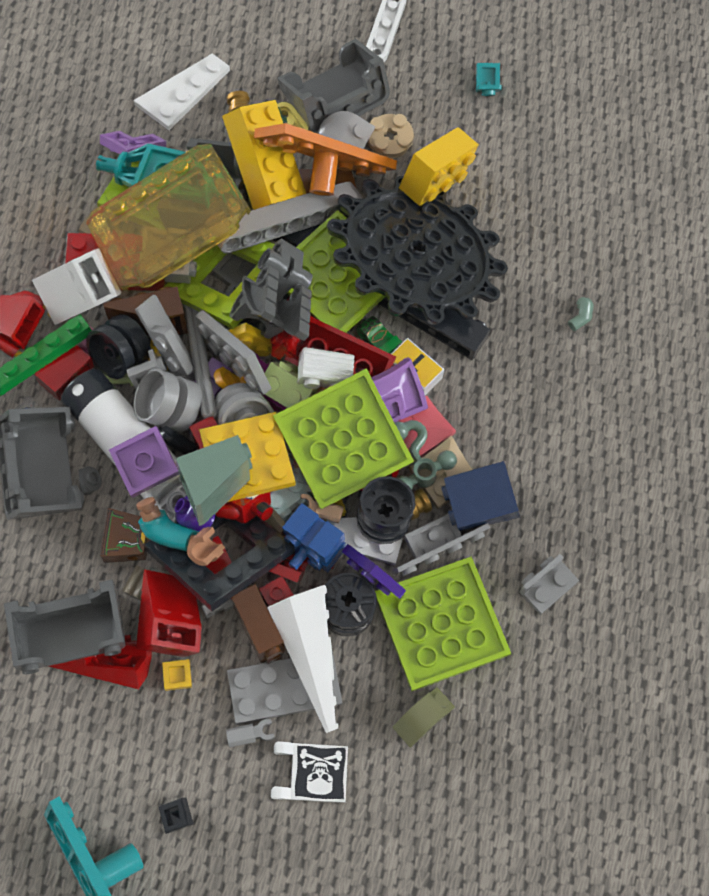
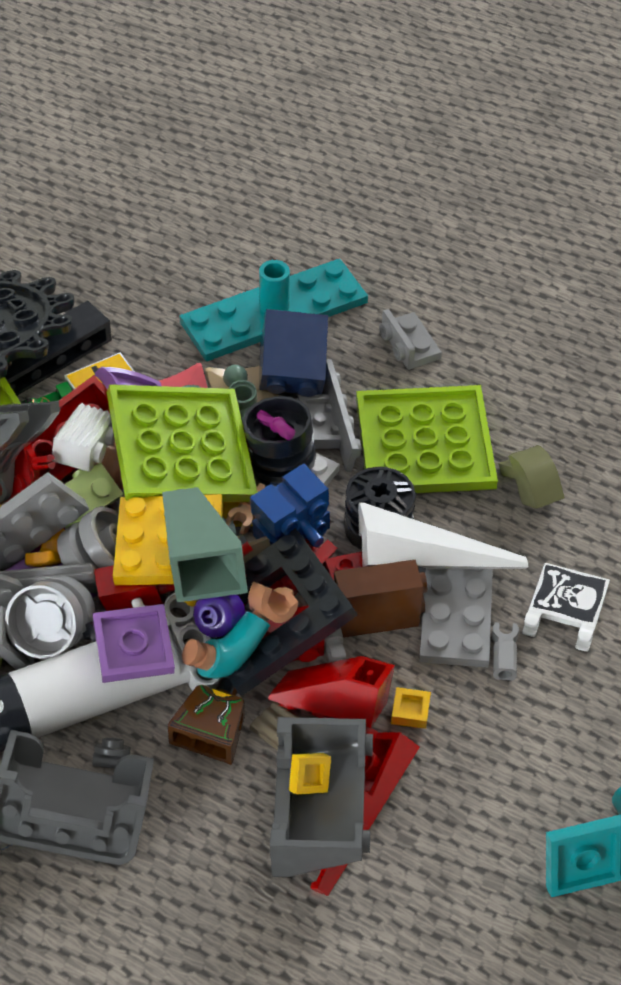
camera: 70 degrees left, 20 degrees down
(84, 616) = (310, 773): none -> yellow plate
(176, 815) = (587, 746): black tile -> none
(372, 572) = (352, 459): dark purple plate -> none
(389, 496) = (276, 424): none -> magenta piece
(546, 471) = (240, 318): none -> teal plate
(585, 308) = (105, 234): sand green arm -> none

